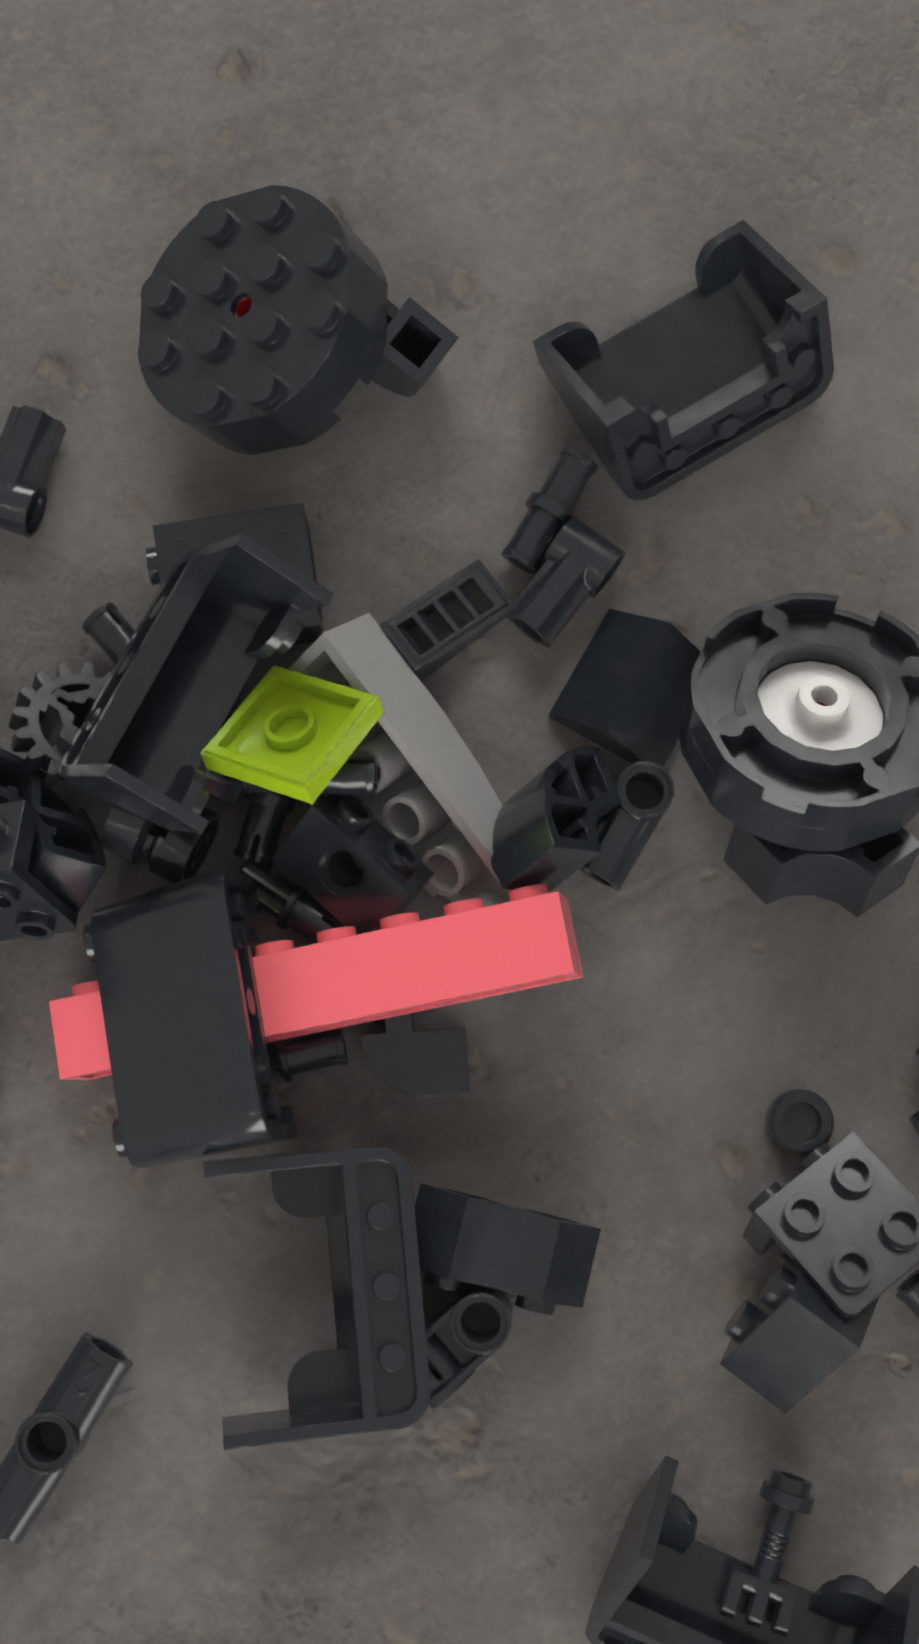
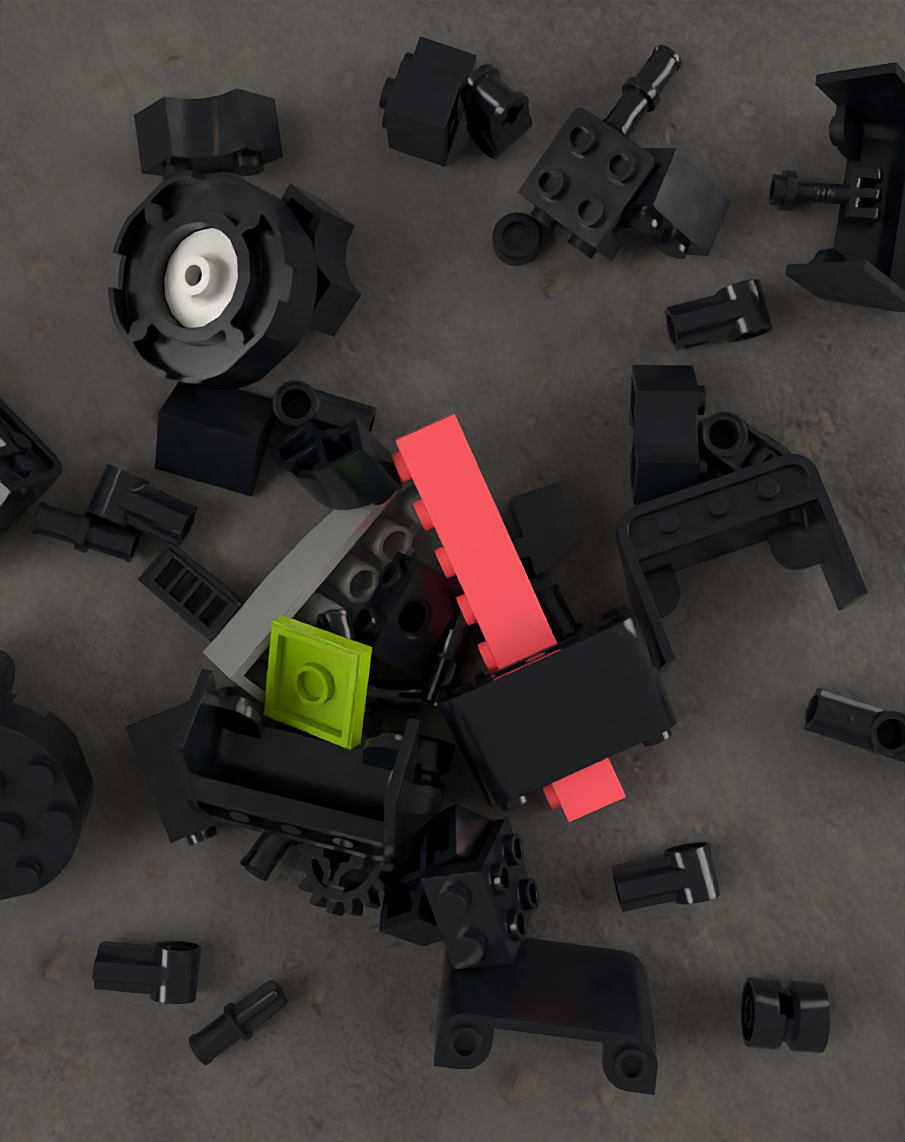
camera: 110 degrees left, 5 degrees up
(638, 1379) = (733, 313): none -> black piece

